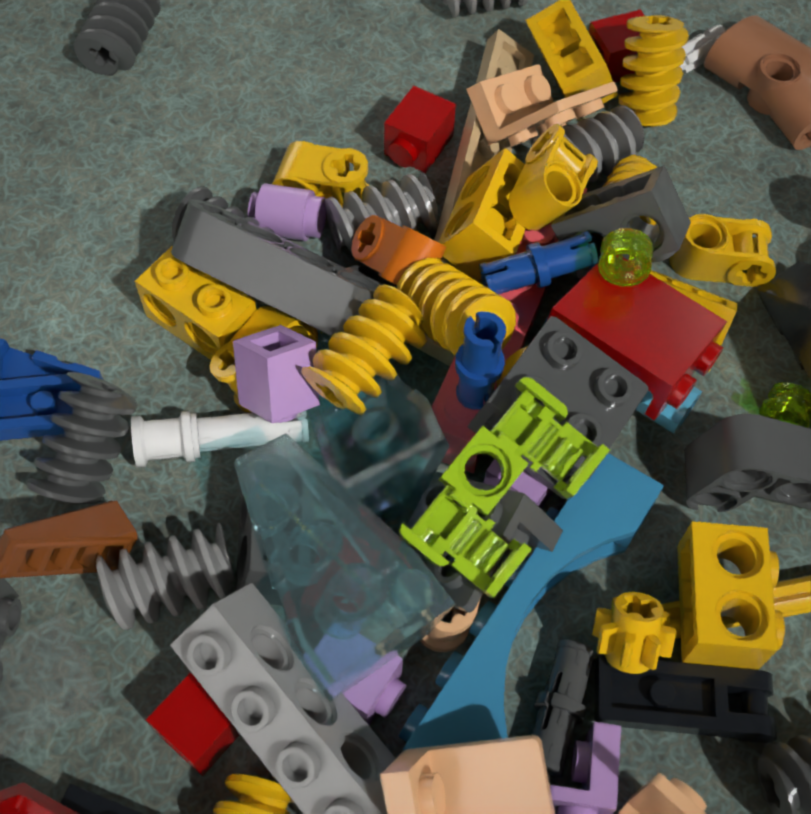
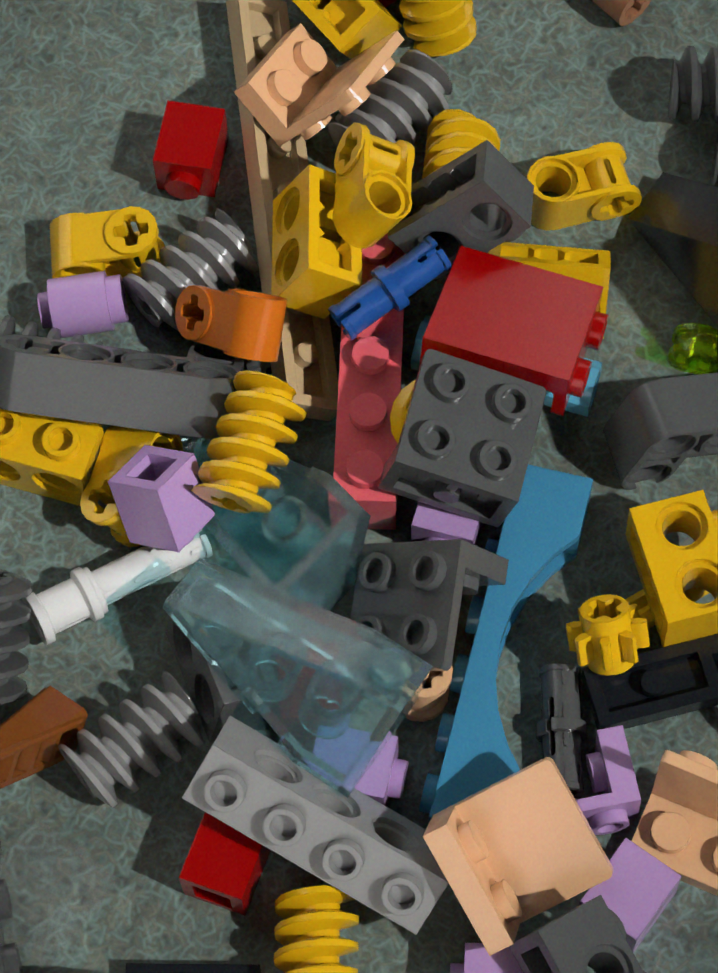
camera: 15 degrees left, 5 degrees up
(448, 299) = (324, 368): yellow piece -> none
(480, 359) = (372, 421): blue pin -> none
(522, 431) = (439, 481): lime piece -> none
(629, 242) = (479, 256): clear neon green bush -> none

